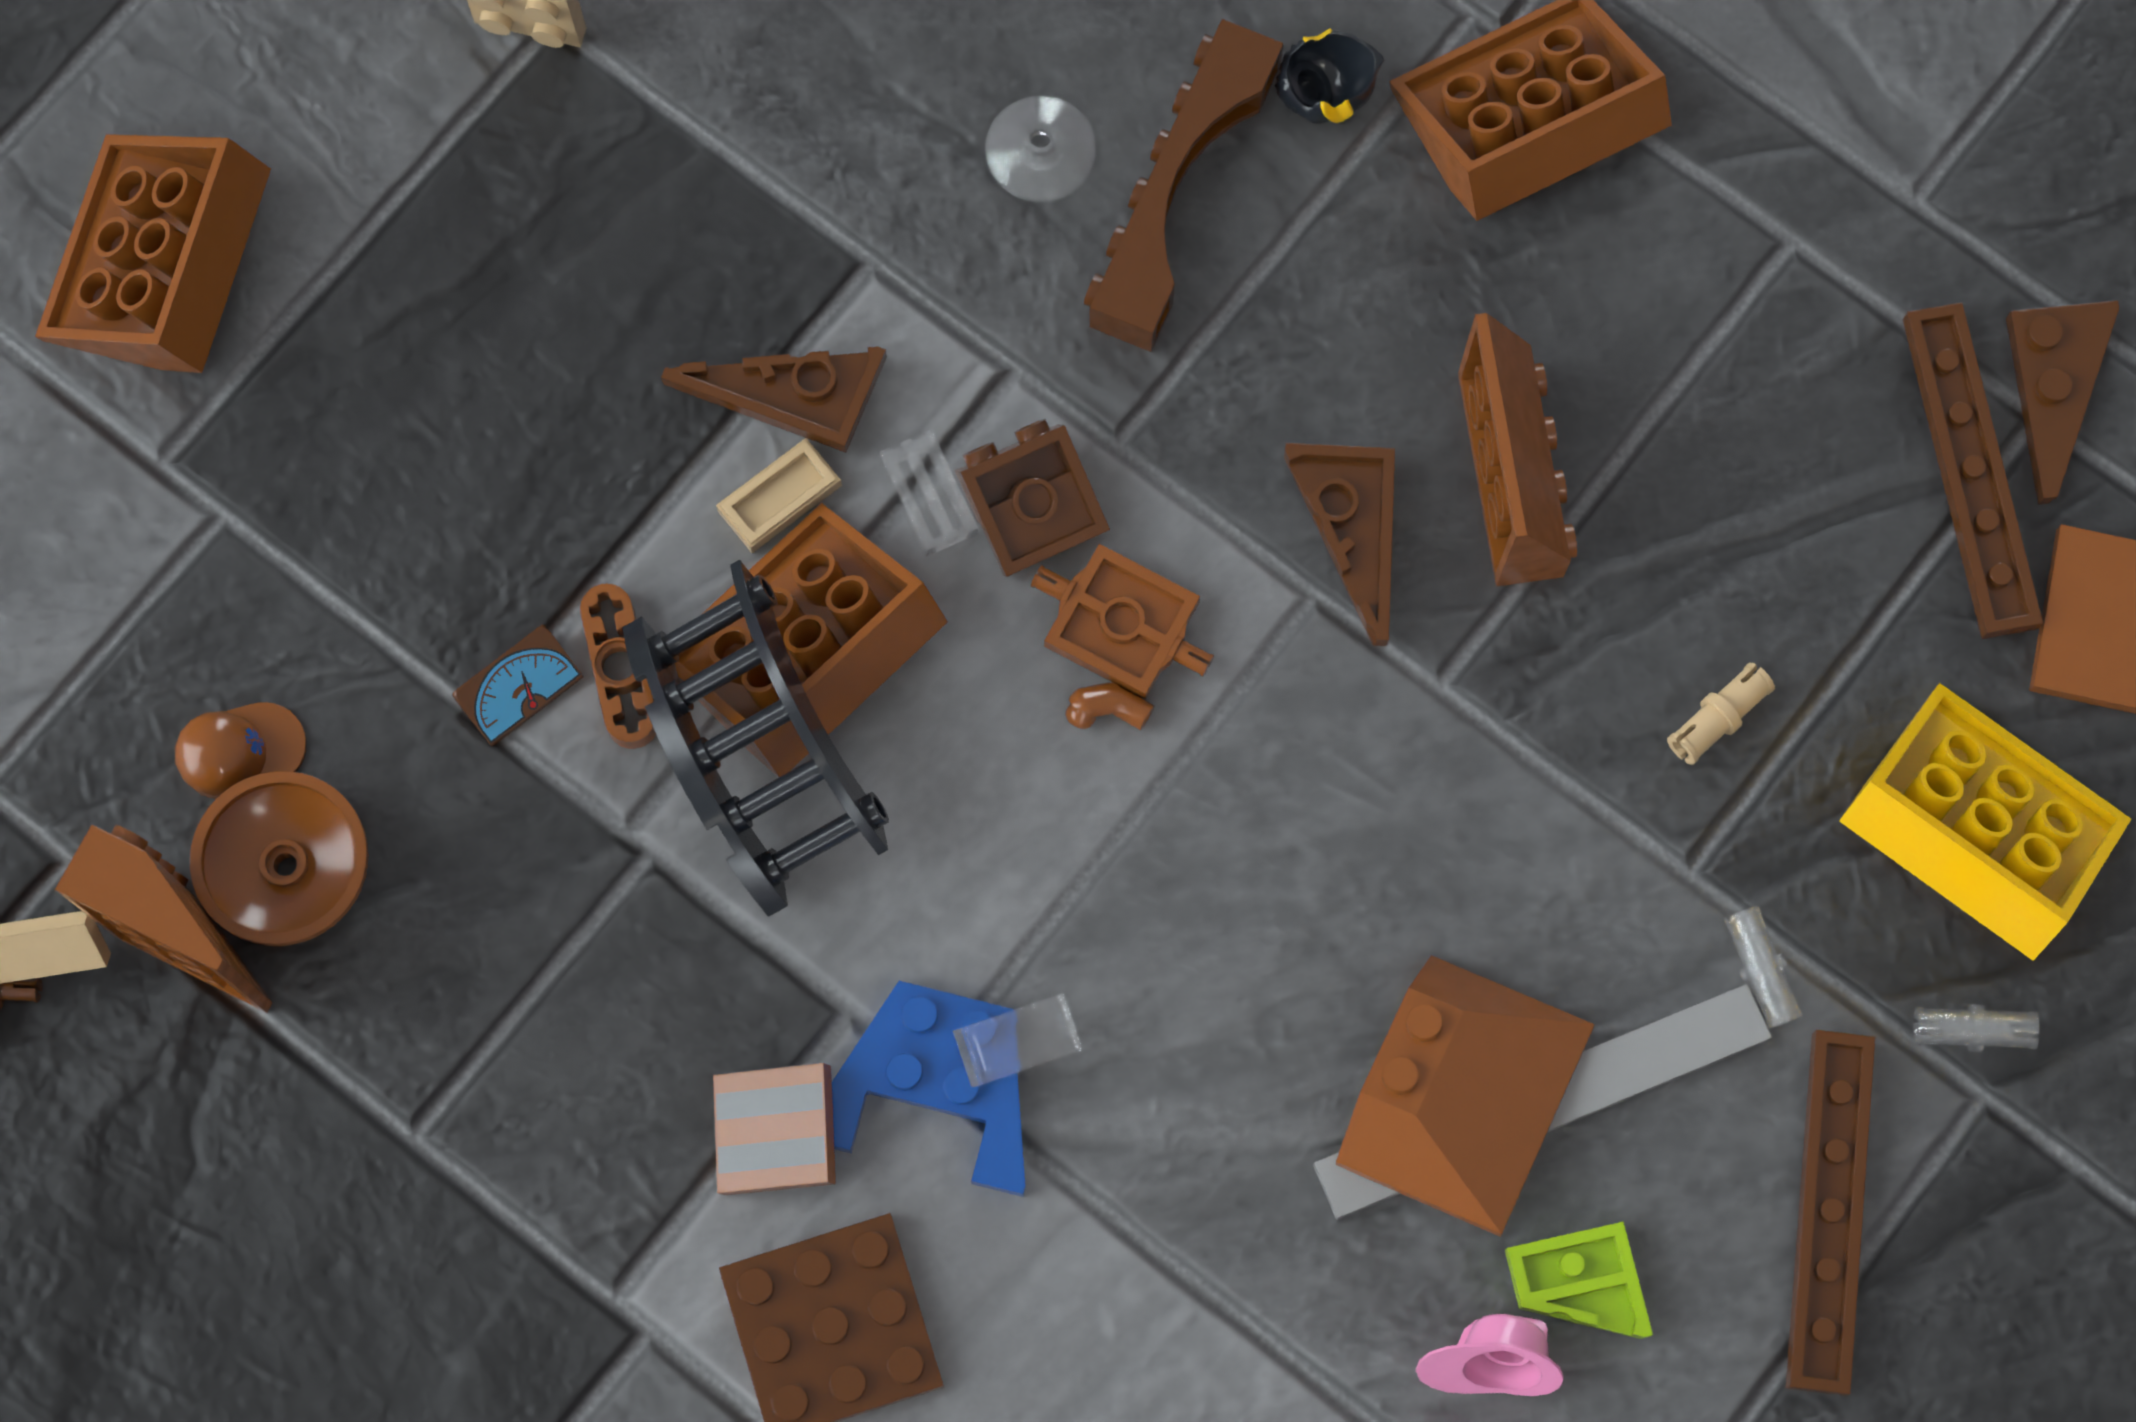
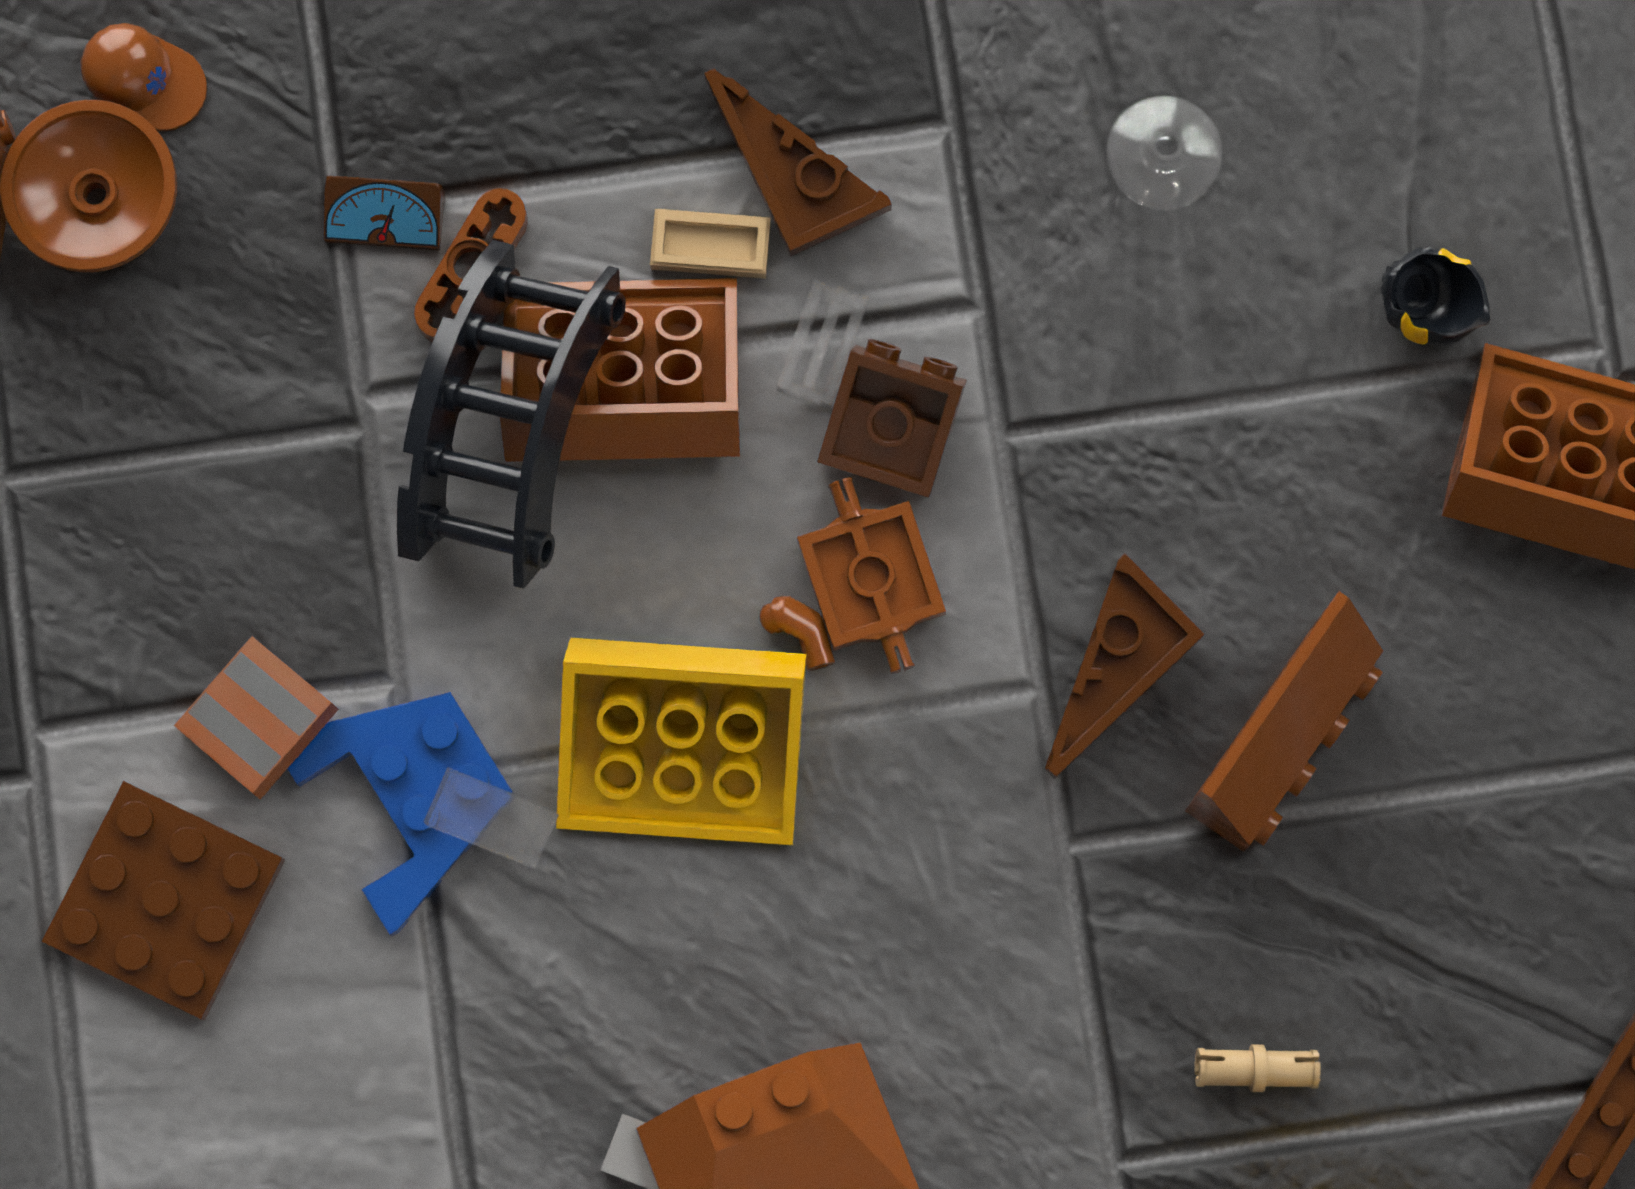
camera: 45 degrees right, 5 degrees up
(1100, 859) = (680, 741): none -> yellow slope
(1228, 88) = (1350, 235): reddish brown arch -> none

